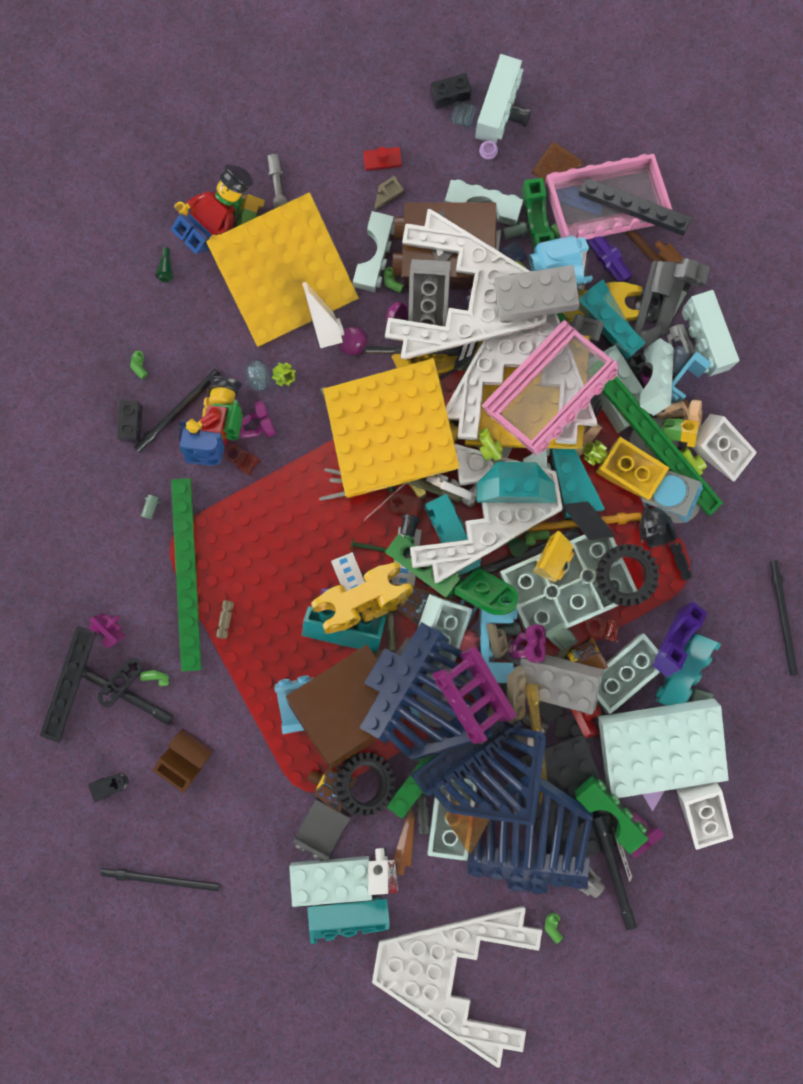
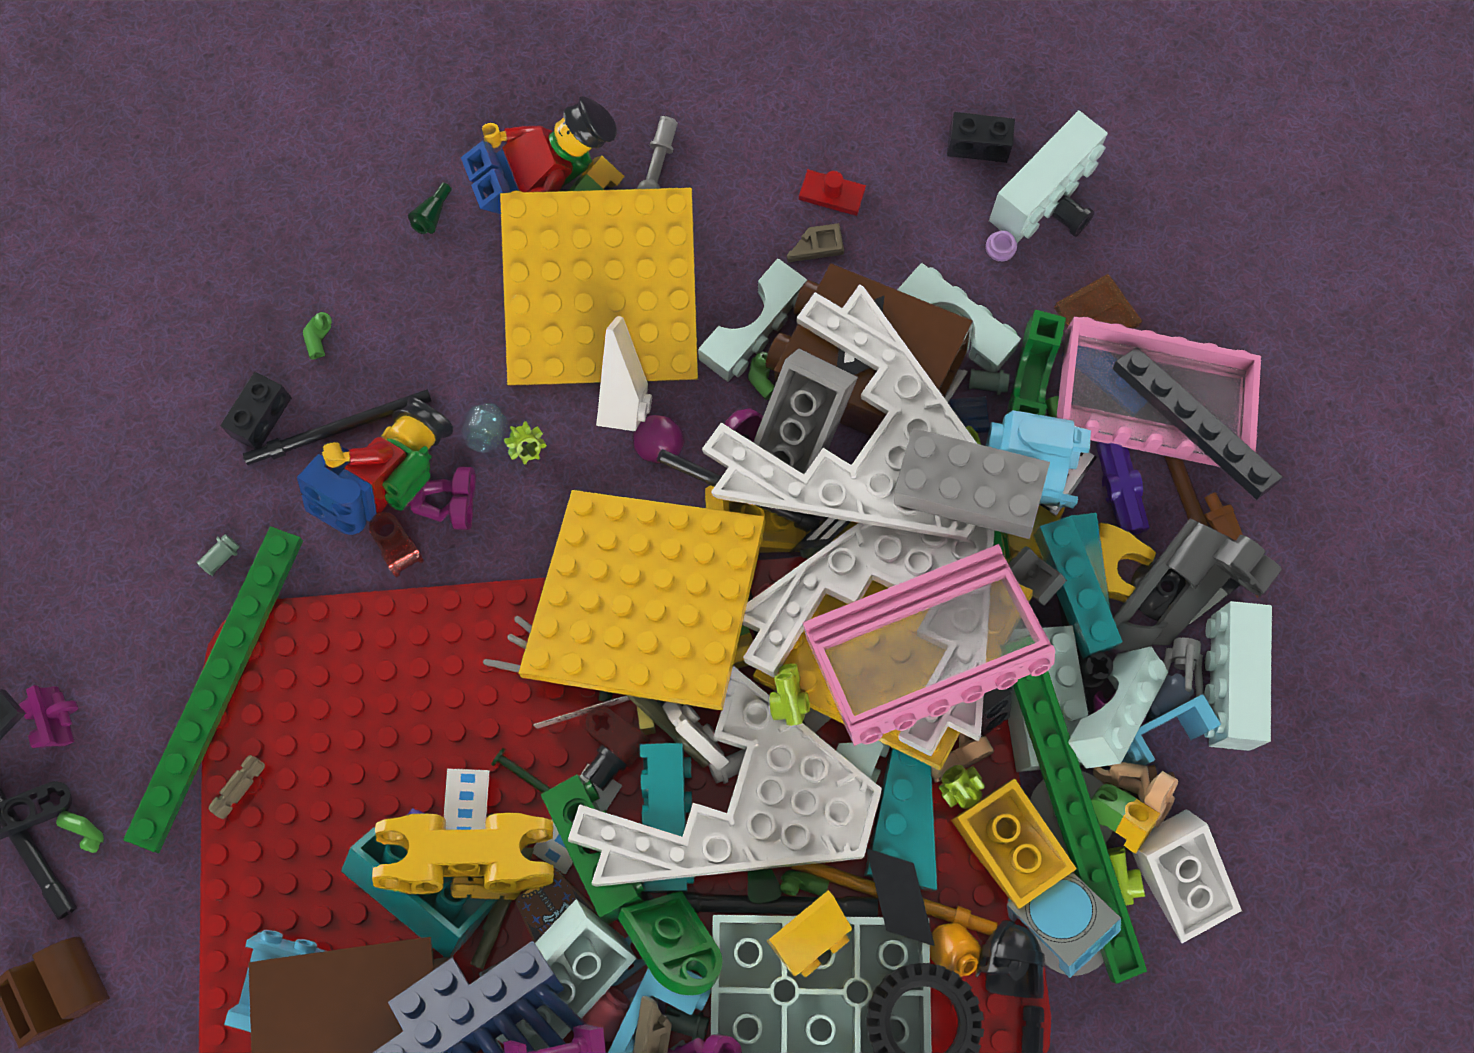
camera: 25 degrees right, 10 degrees down
(463, 114) = (985, 179): clear light blue piece -> none
(516, 484) = (804, 779): teal wedge -> none
(625, 533) = (955, 949): none -> light orange head

